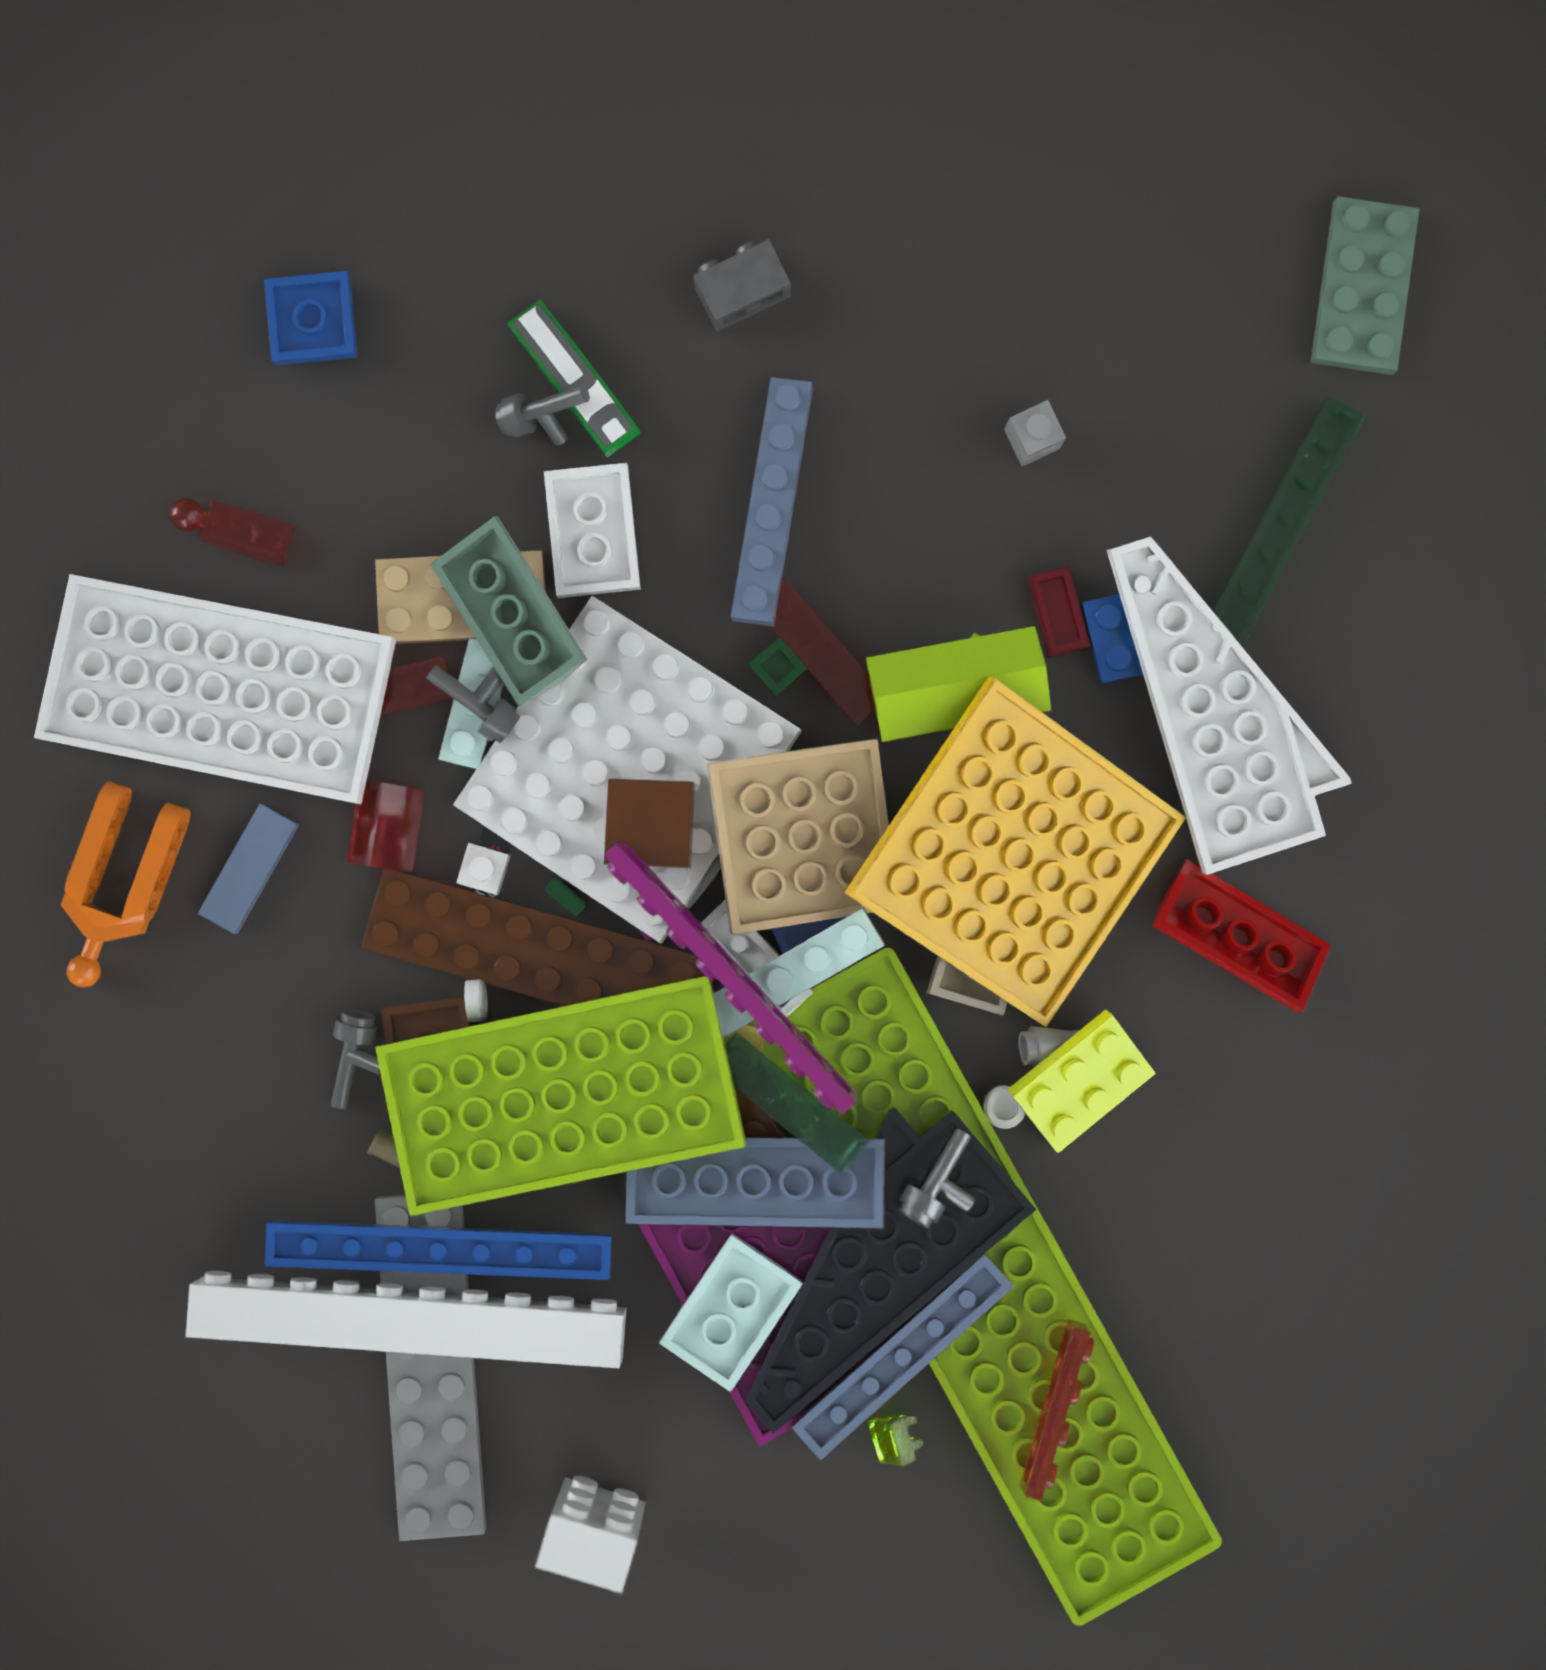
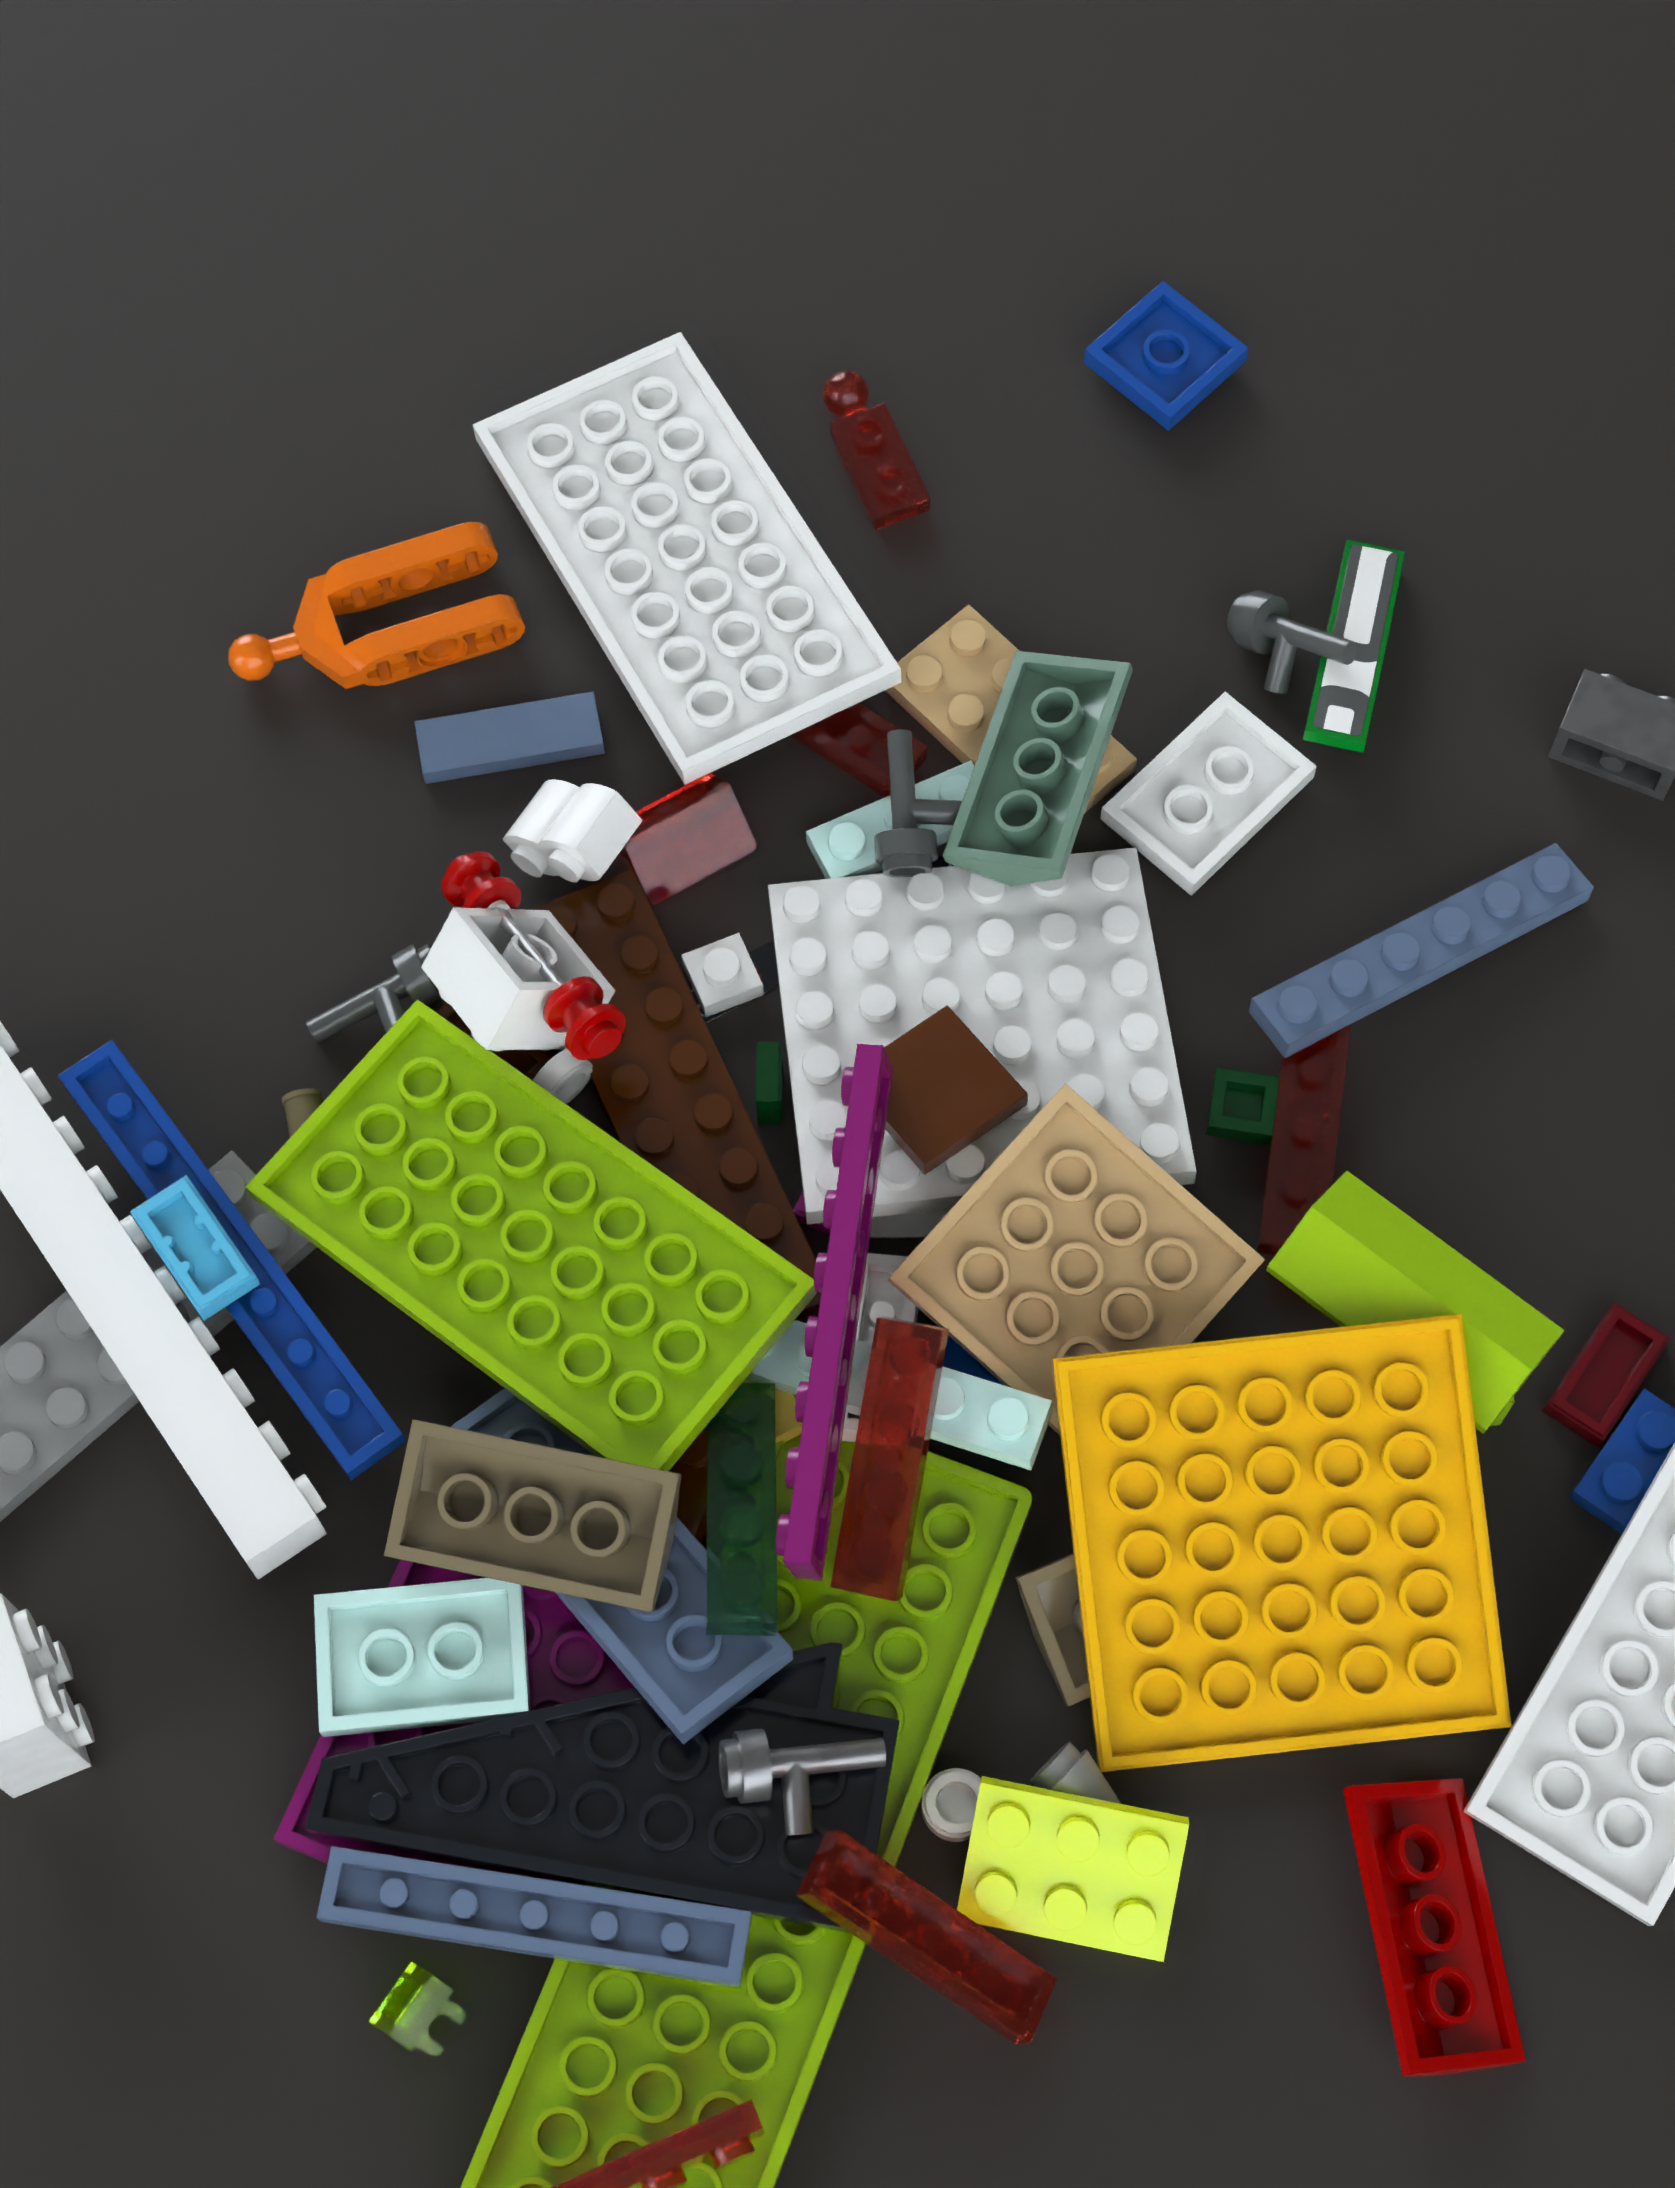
camera: 50 degrees right, 20 degrees down
(340, 887) = (571, 831): none -> white brick
(404, 983) = (517, 970): none -> white brick
(426, 1270) = (195, 1247): none -> medium azure plate
(714, 1212) = (534, 1515): none -> dark tan slope
(825, 1011) = (889, 1458): none -> clear red plate
(1062, 1182) = (927, 1937): none -> clear red plate

